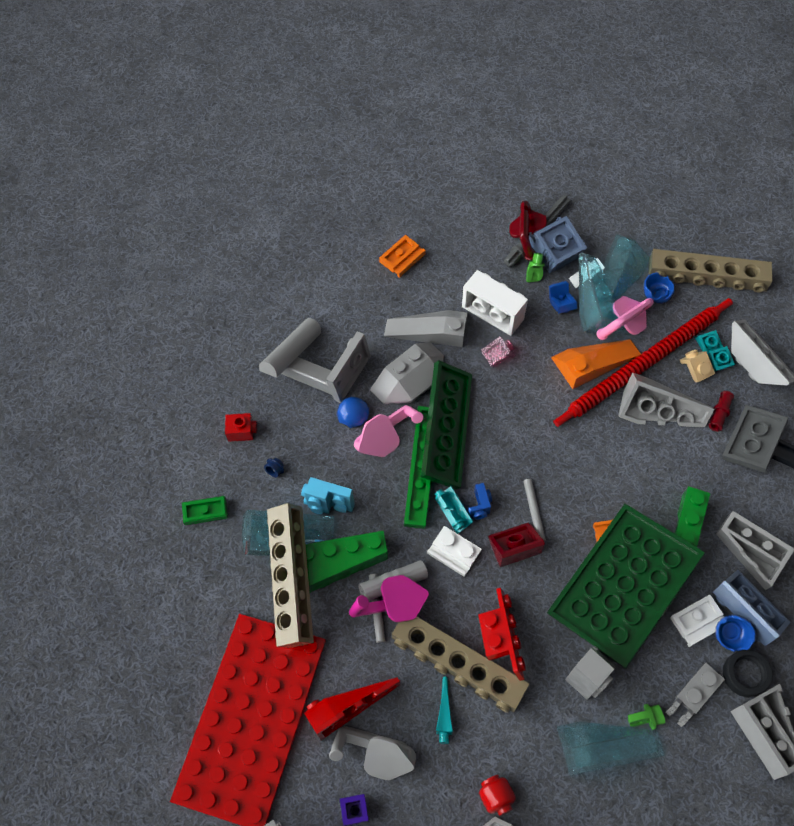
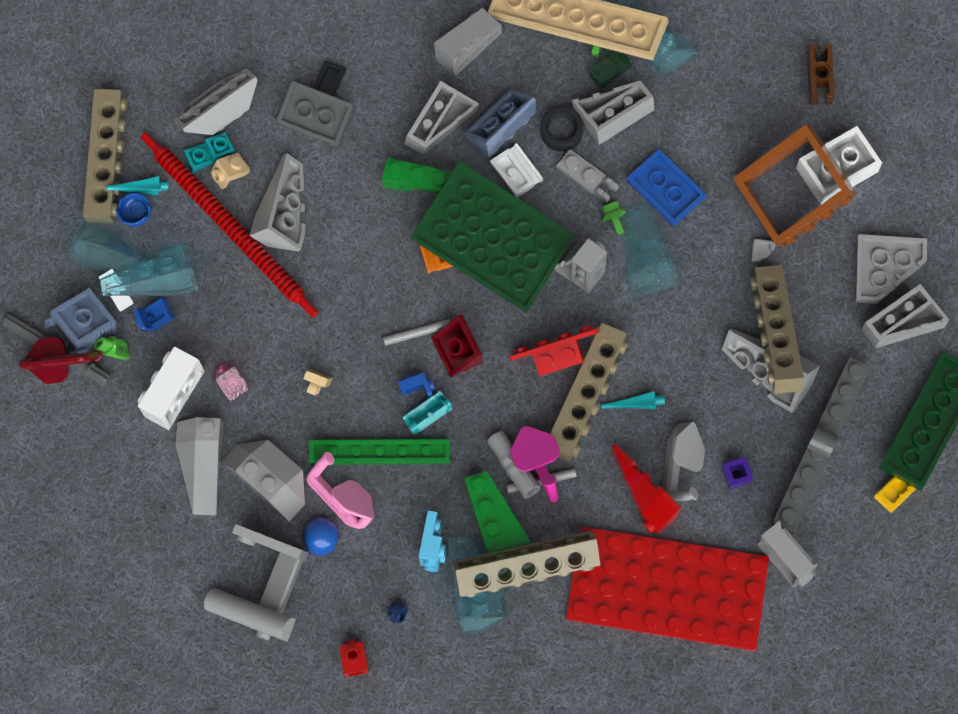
camera: 95 degrees left, 10 degrees up
(204, 510) = (456, 679): green plate -> none
(402, 256) = (103, 505): orange plate -> none
(446, 425) = (330, 427): dark green plate -> none
(454, 551) = (471, 409): white plate -> none
(493, 419) = (316, 381): none -> tan tile
(497, 795) = (704, 346): red head -> none
(589, 362) = (232, 282): orange wedge -> none
(630, 315) = (170, 239): bright pink piece -> none
(681, 300) = (147, 186): none -> teal piece
(681, 780) = (666, 188): none -> blue plate
(721, 411) = (284, 146): dark red pin -> none
(735, 633) = (528, 137): blue hair -> none

